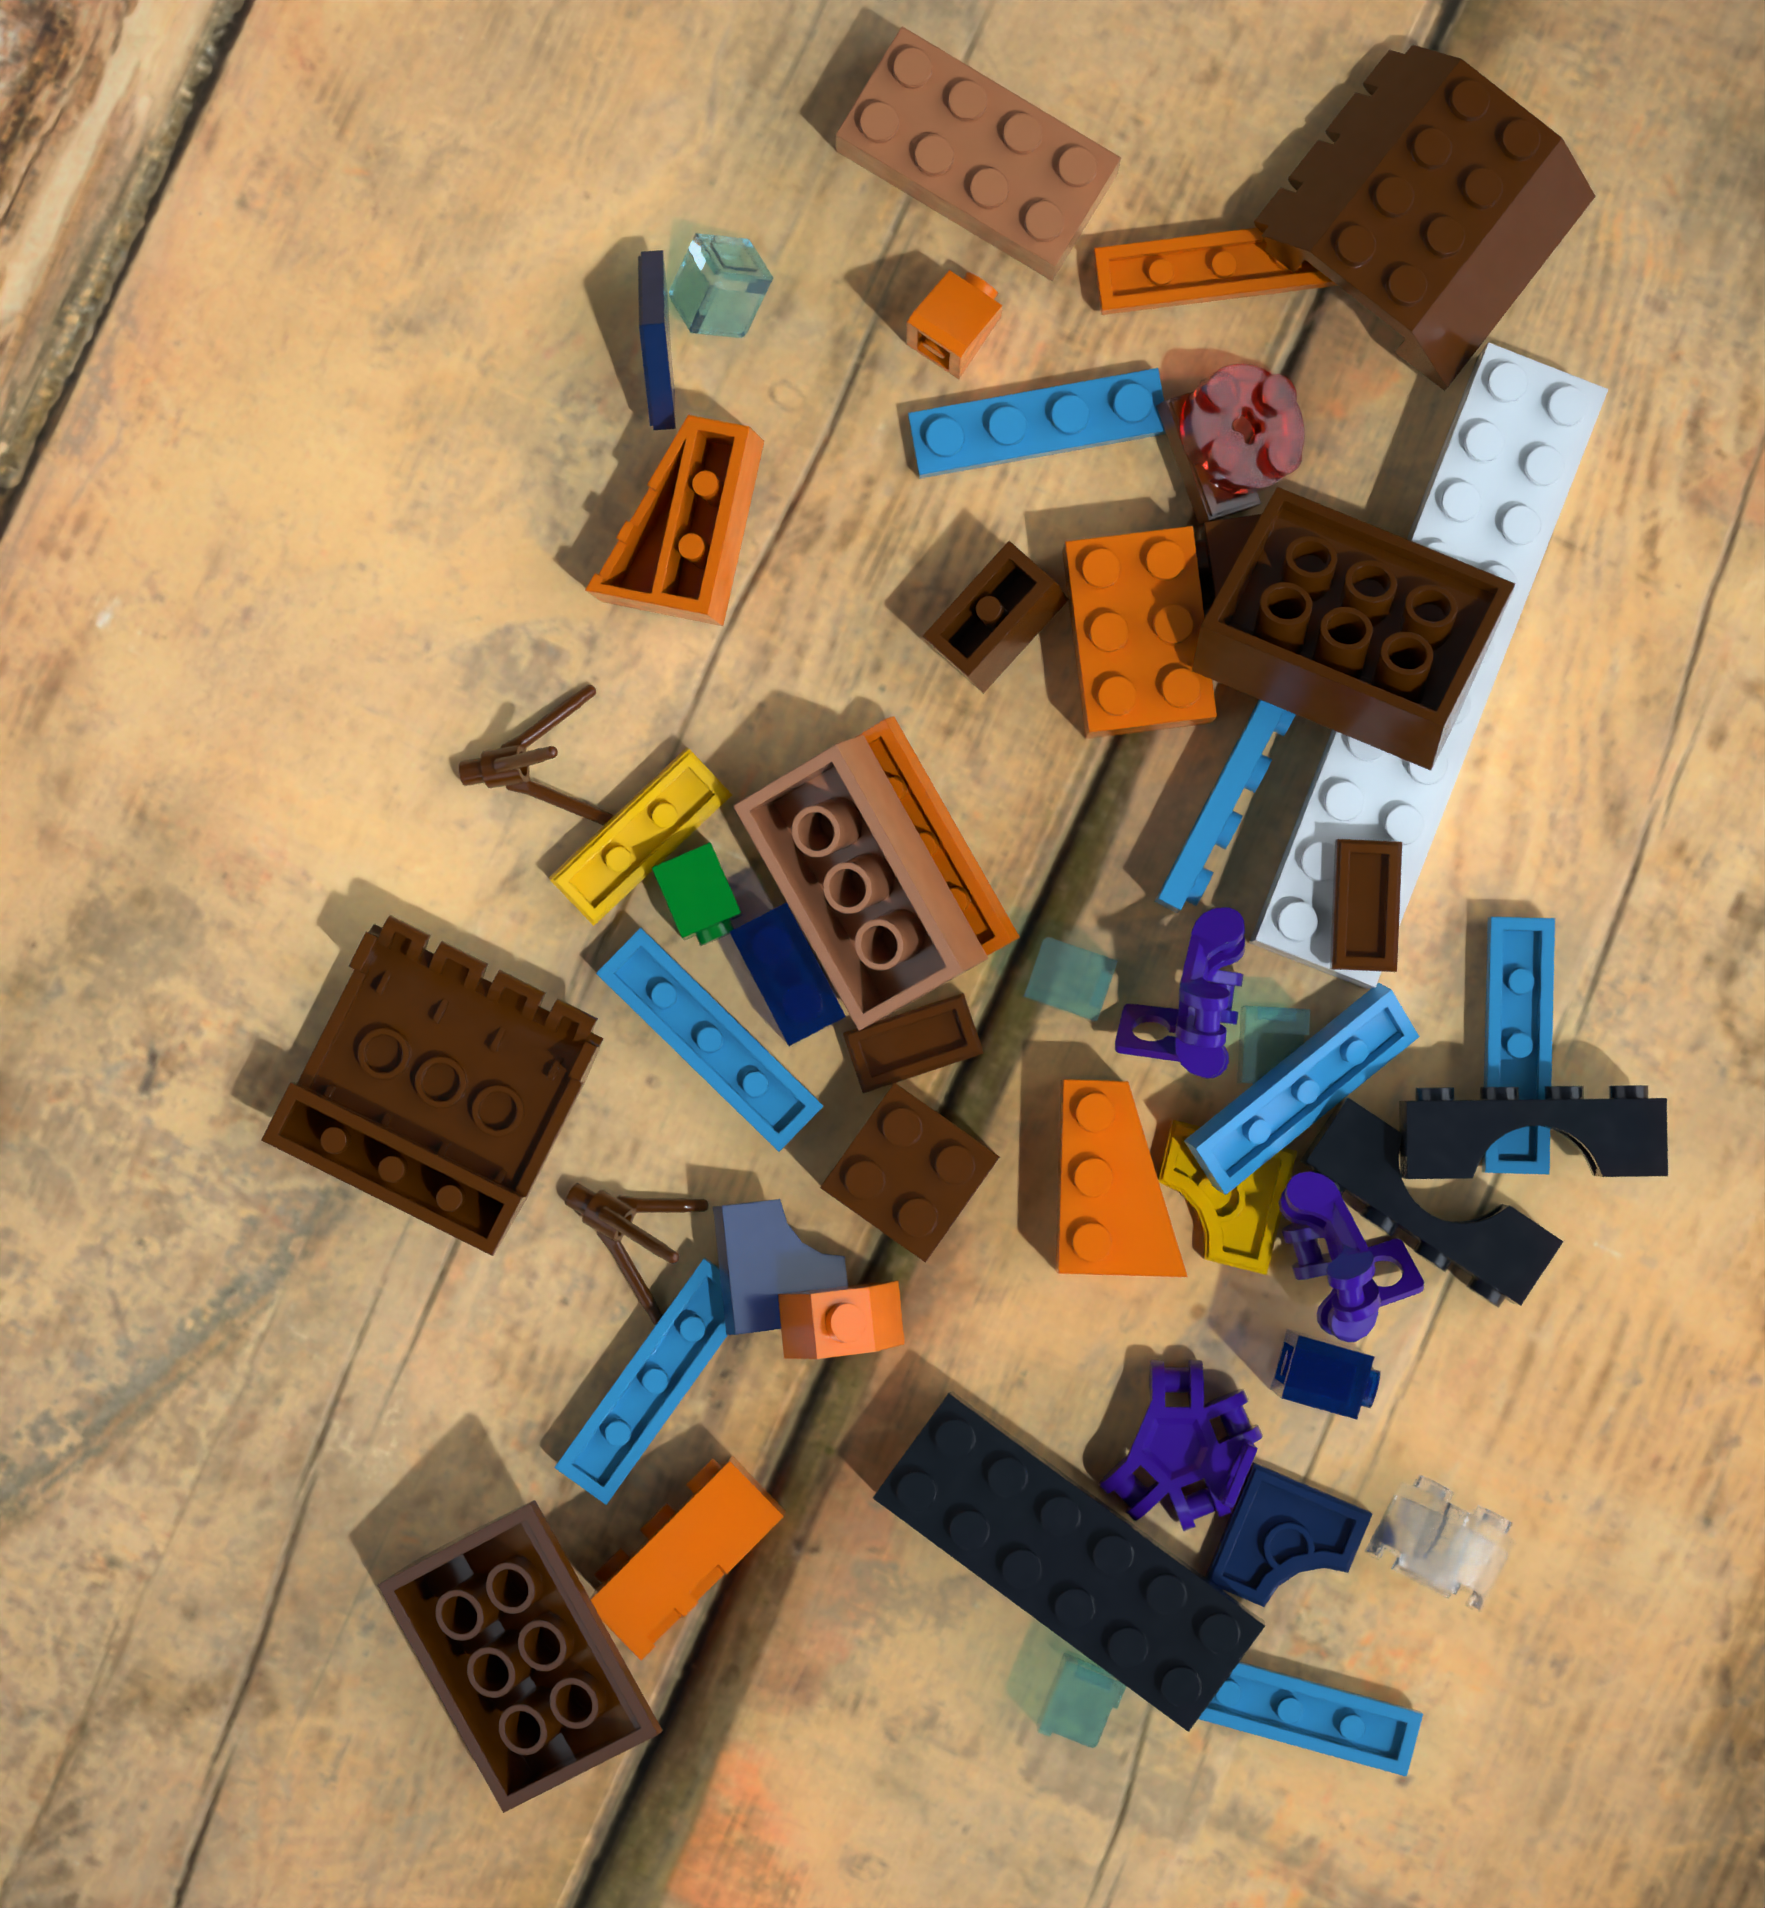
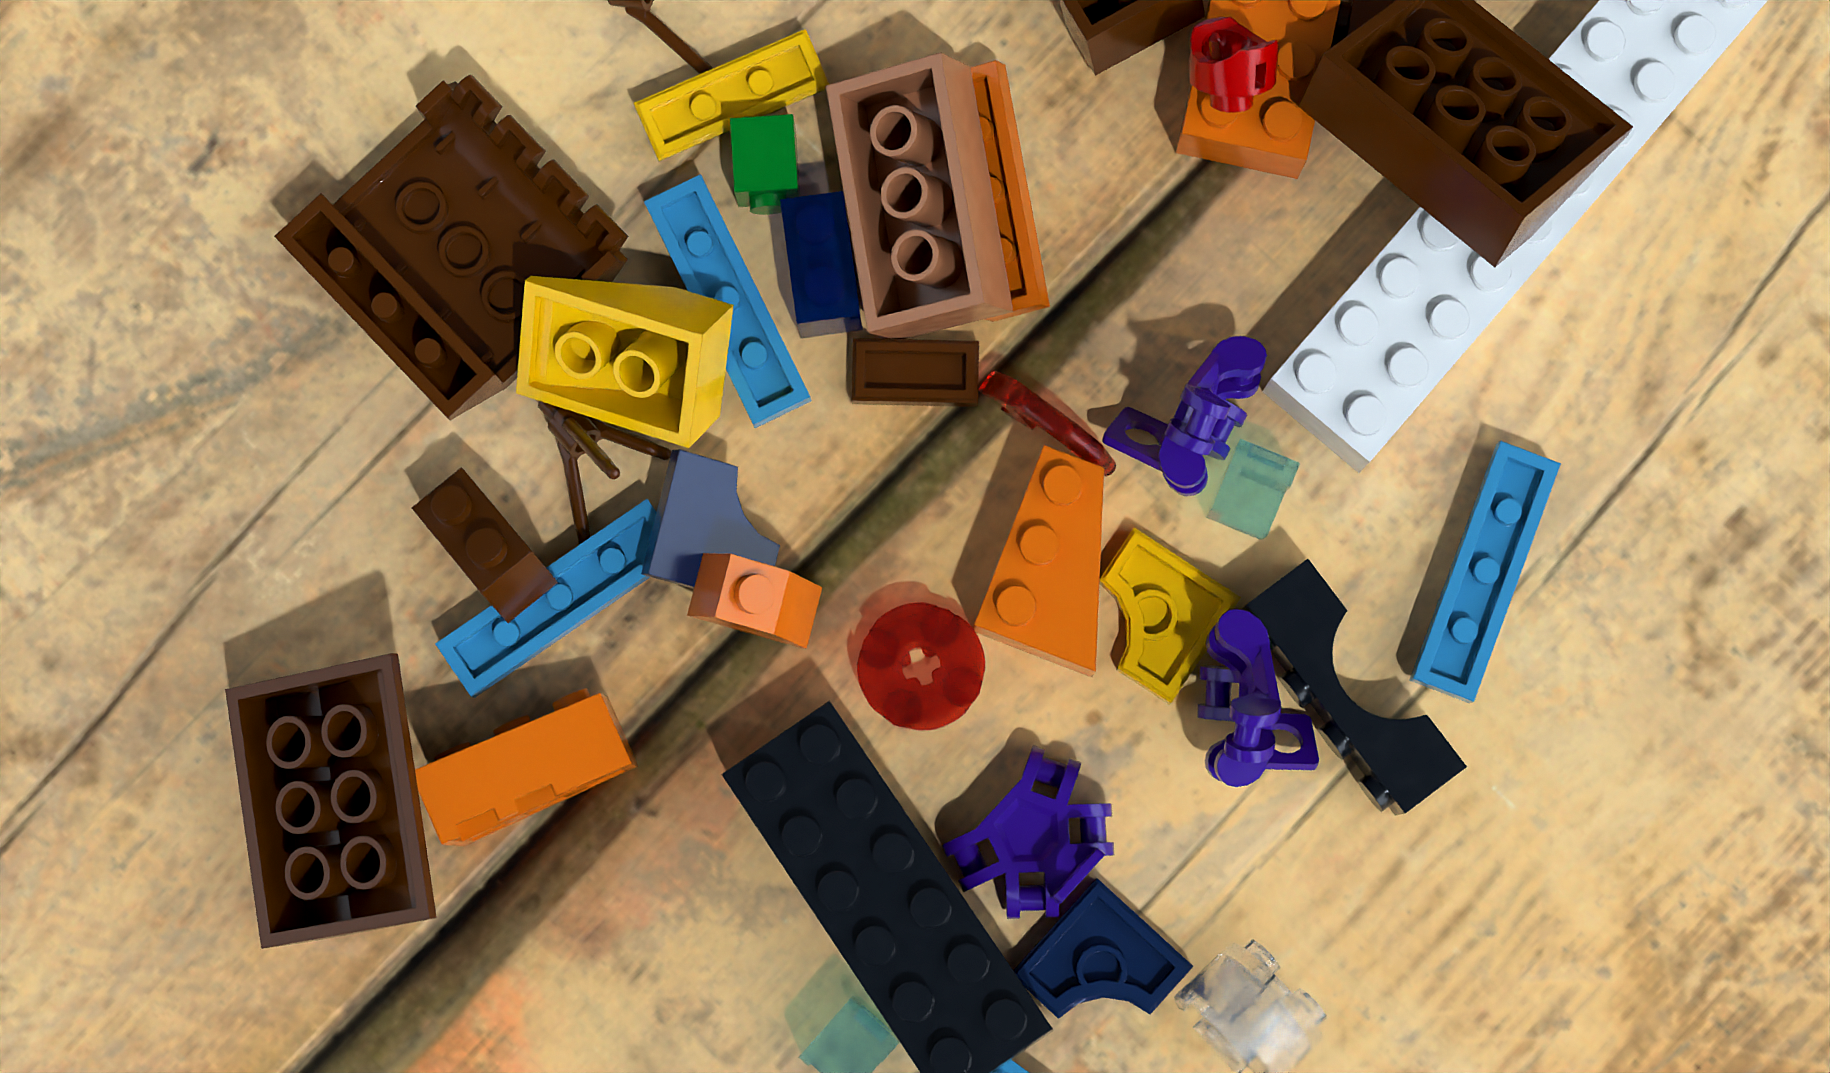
camera: 20 degrees right, 5 degrees down
(568, 1360) = (484, 545): none -> reddish brown brick
(637, 1132) = (625, 354): none -> yellow slope
(909, 1172) = (869, 484): reddish brown brick -> none
(1015, 1361) = (937, 634): none -> clear red plate
(1056, 1048) = (1034, 411): none -> clear red piece
(1070, 979) = (1082, 361): clear light blue panel -> none
(1122, 658) = (1237, 67): none -> red piece
(1217, 819) = (1273, 260): dark azure plate -> none
(1301, 1088) = (1265, 537): dark azure plate -> none
(1325, 1375) = (1195, 812): clear blue brick -> none
(1366, 905) = (1387, 378): reddish brown tile -> none
(1614, 1134) = (1549, 679): black arch -> none

